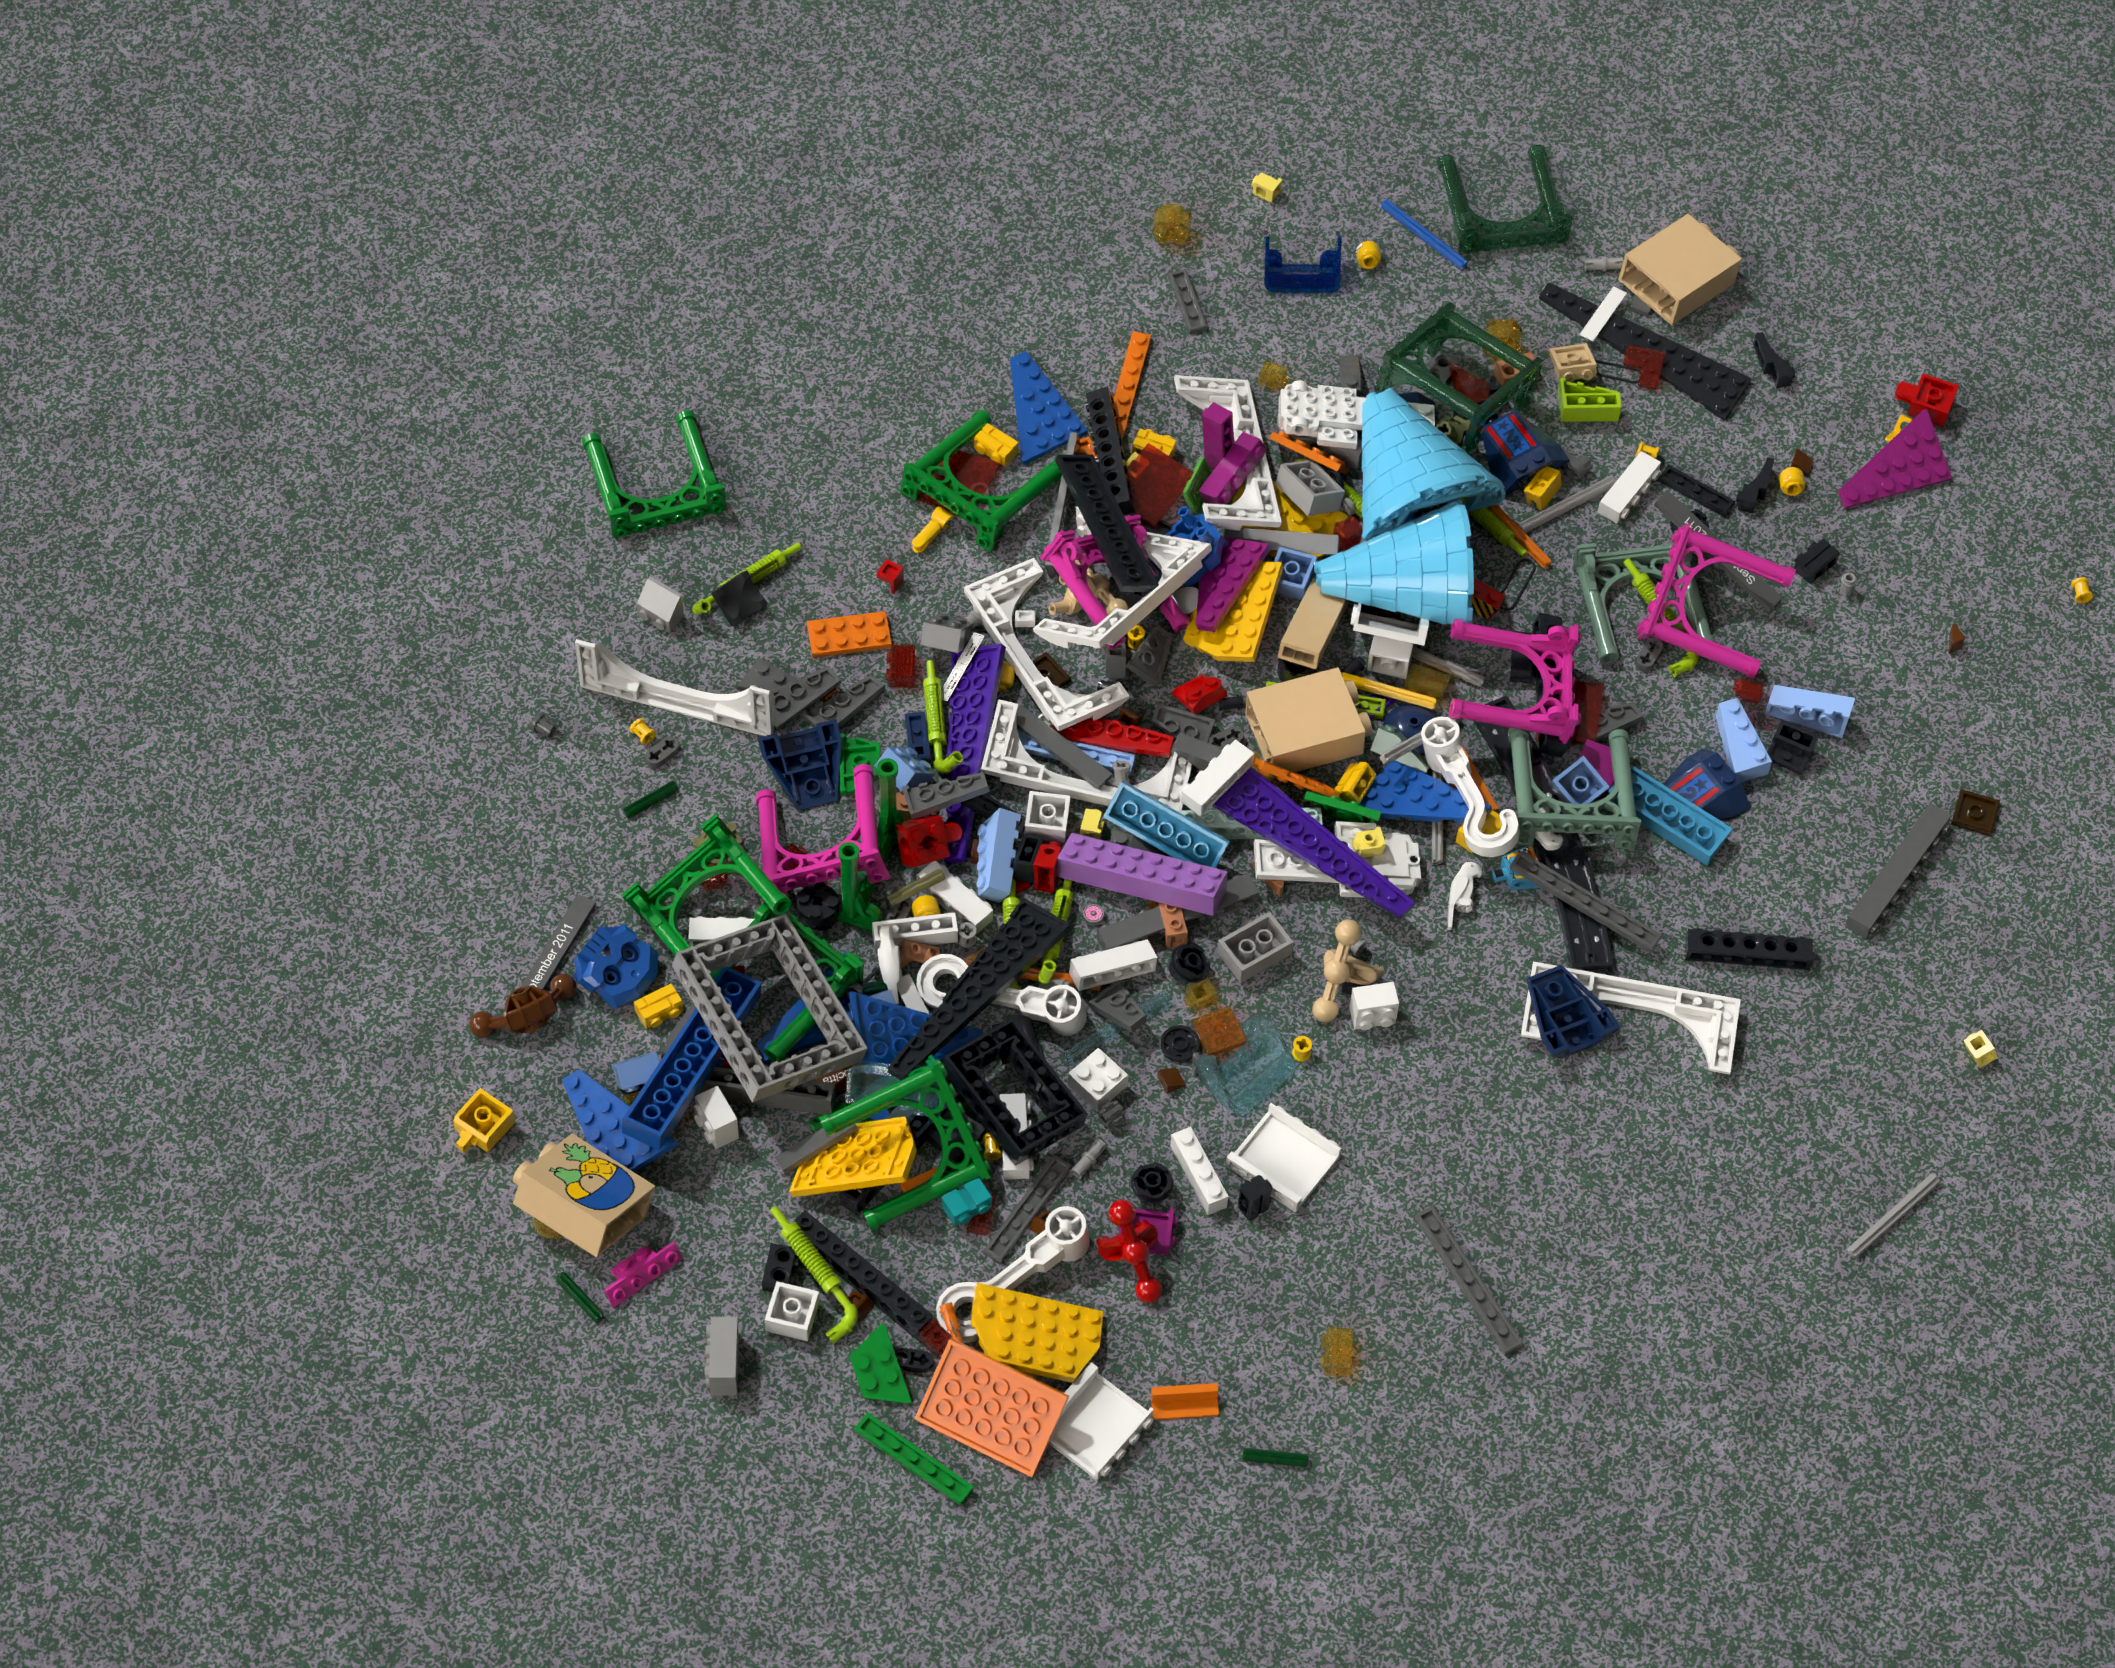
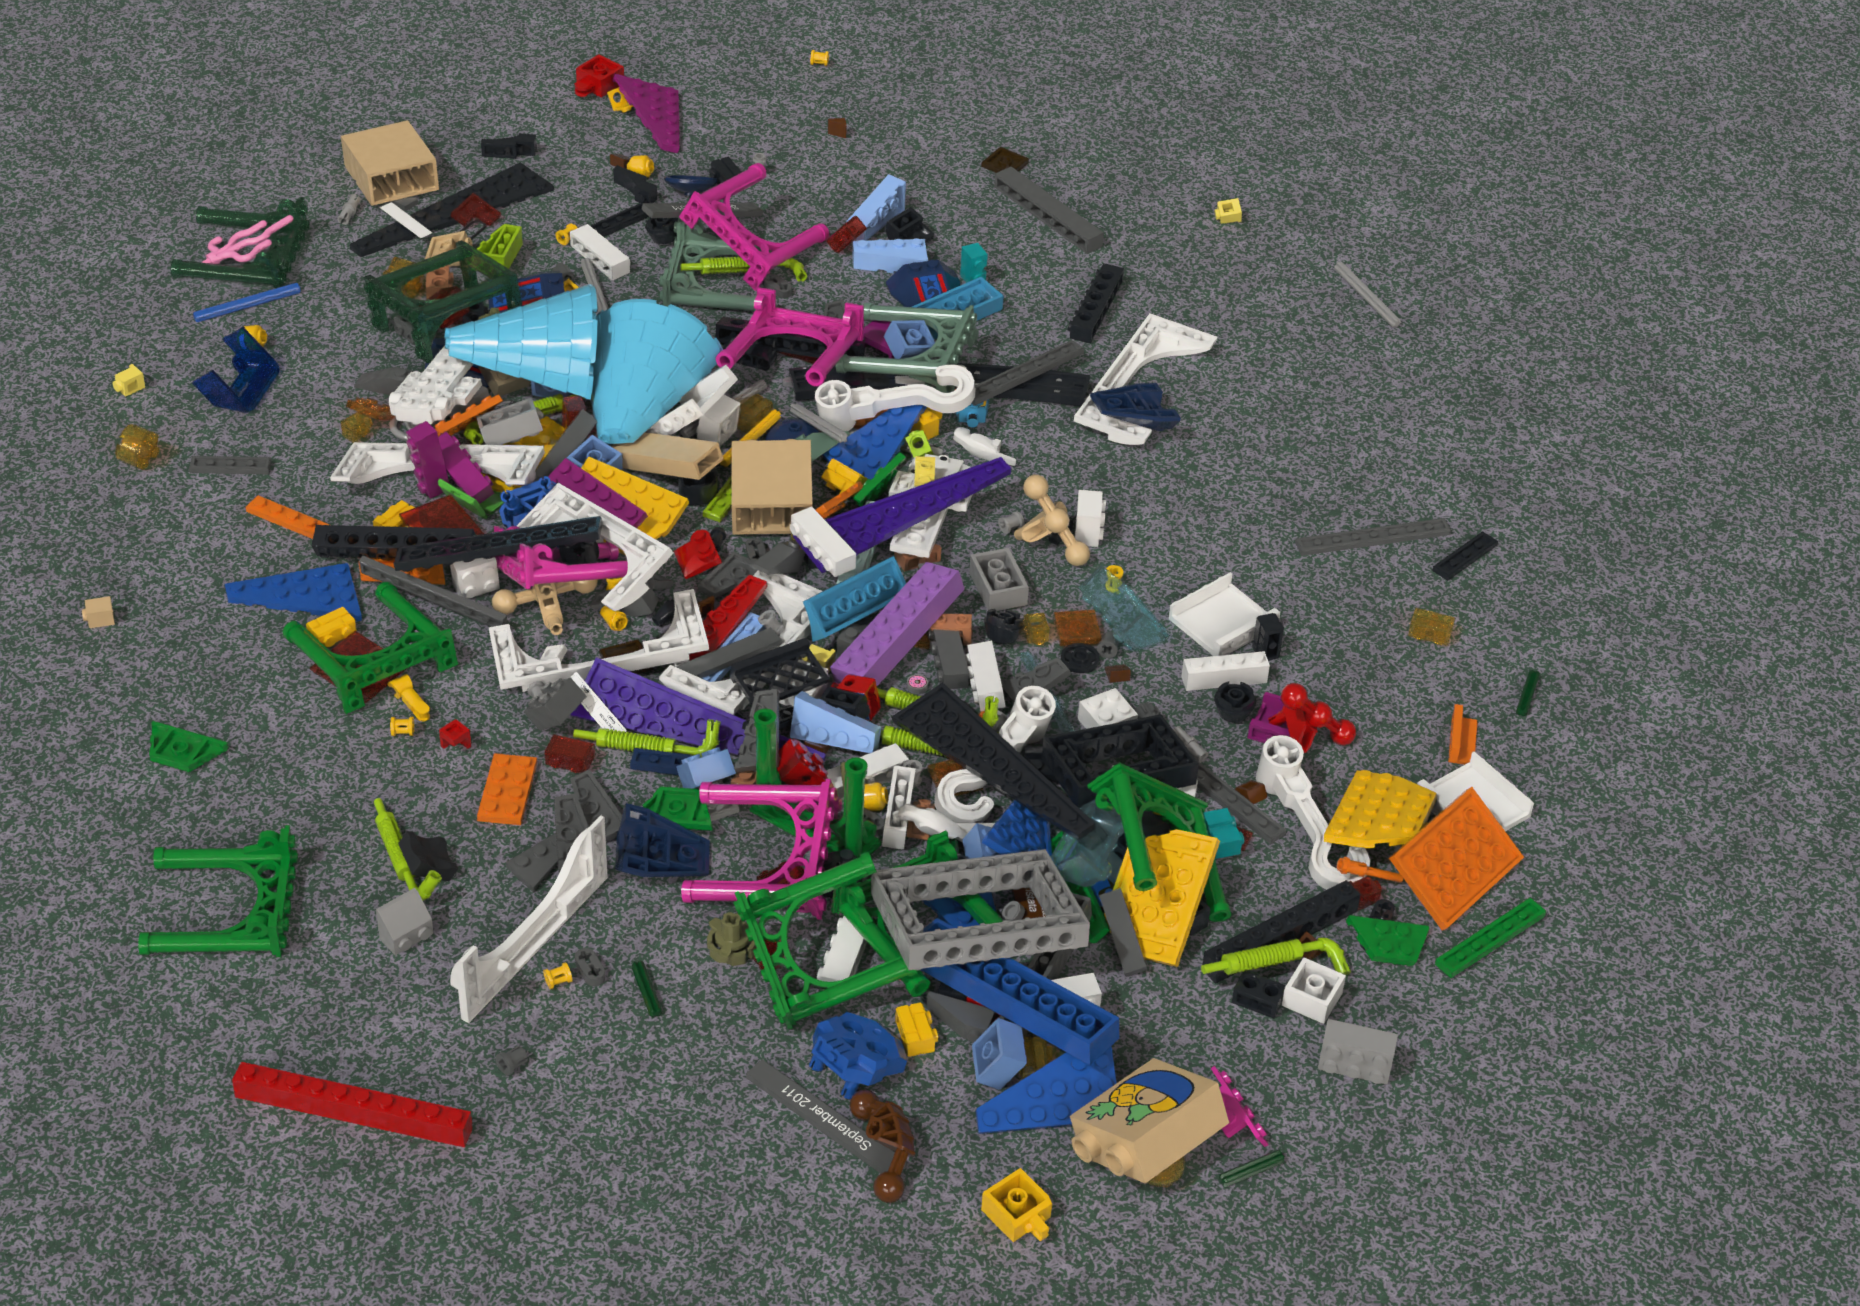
camera: 75 degrees left, 15 degrees down
(465, 633) = (352, 1104): none -> red brick
(816, 390) = (182, 748): none -> green wing
(894, 534) = (394, 723): none -> yellow bush
(955, 276) = (98, 612): none -> tan brick
(1042, 776) = (771, 662): none -> black fence
(1088, 654) = (615, 619): none -> yellow cone
(1295, 370) = (371, 408): none -> clear orange plate
(1429, 835) = (915, 437): none -> lime brick
(1472, 1373) = (1465, 556): none -> black tile
(1486, 190) = (230, 250): none -> bright pink plant
(1751, 817) = (973, 262): none -> teal brick
(1782, 529) = (690, 184): none -> dark blue dish

